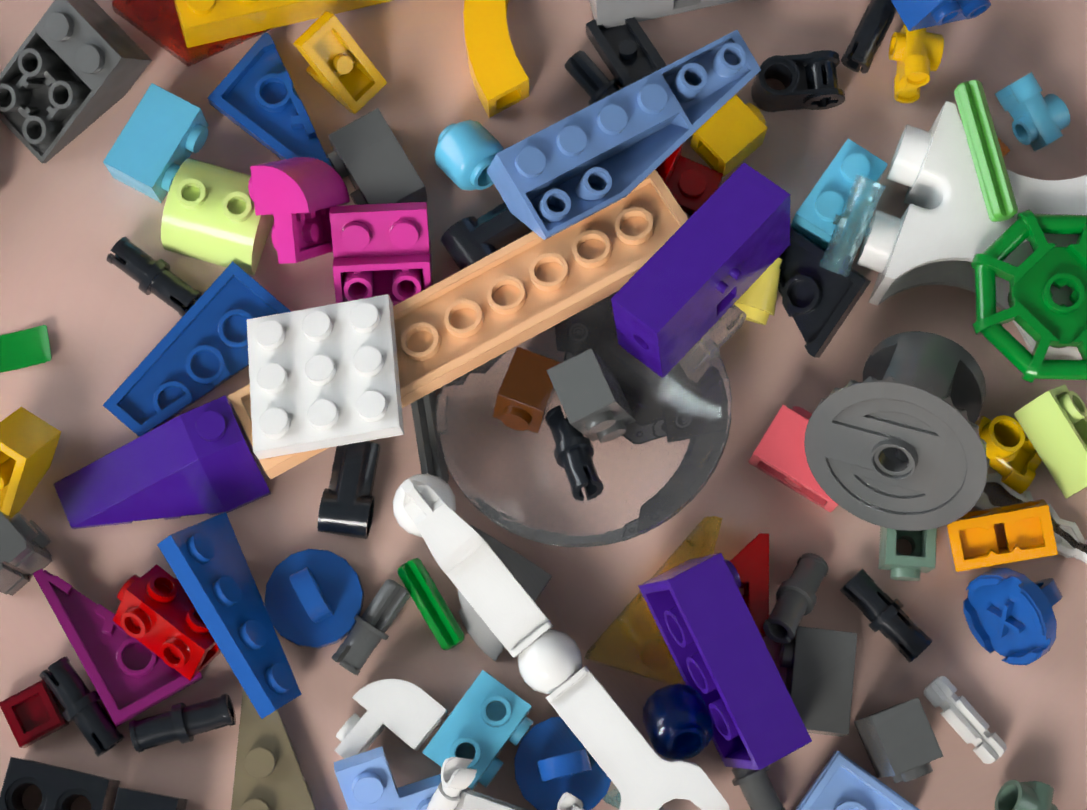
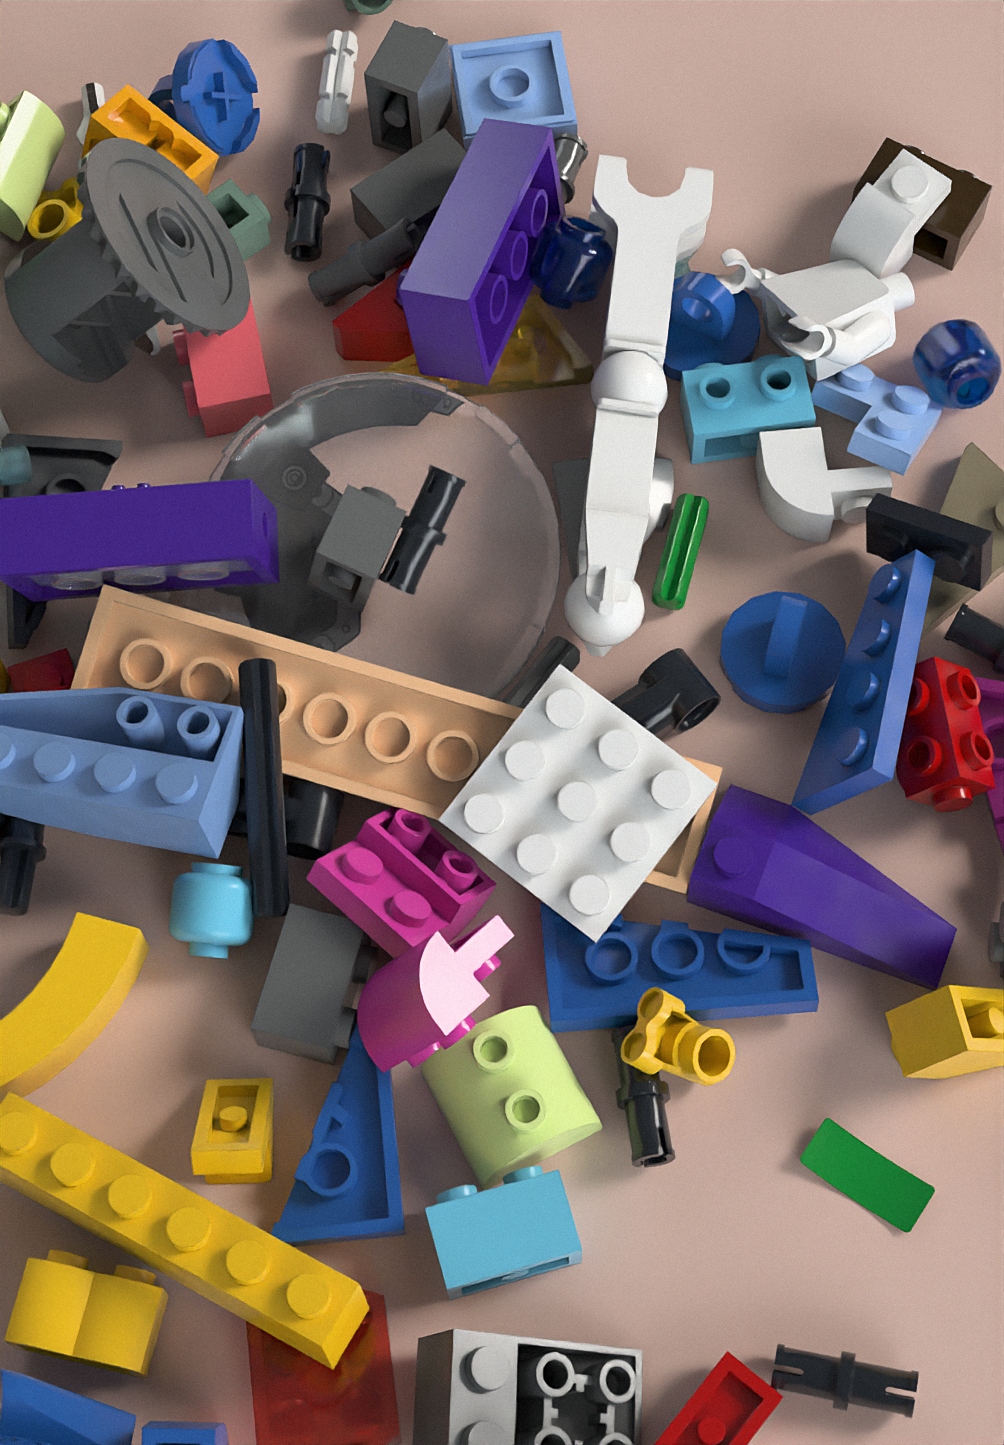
camera: 130 degrees left, 10 degrees down
(156, 312) = (675, 1042): none -> yellow plate
(259, 737) = (958, 547): none -> black plate
(371, 626) = (753, 576): dark grey axle -> none
(500, 225) = (264, 788): none -> black axle
(525, 391) = (405, 622): reddish brown brick -> none

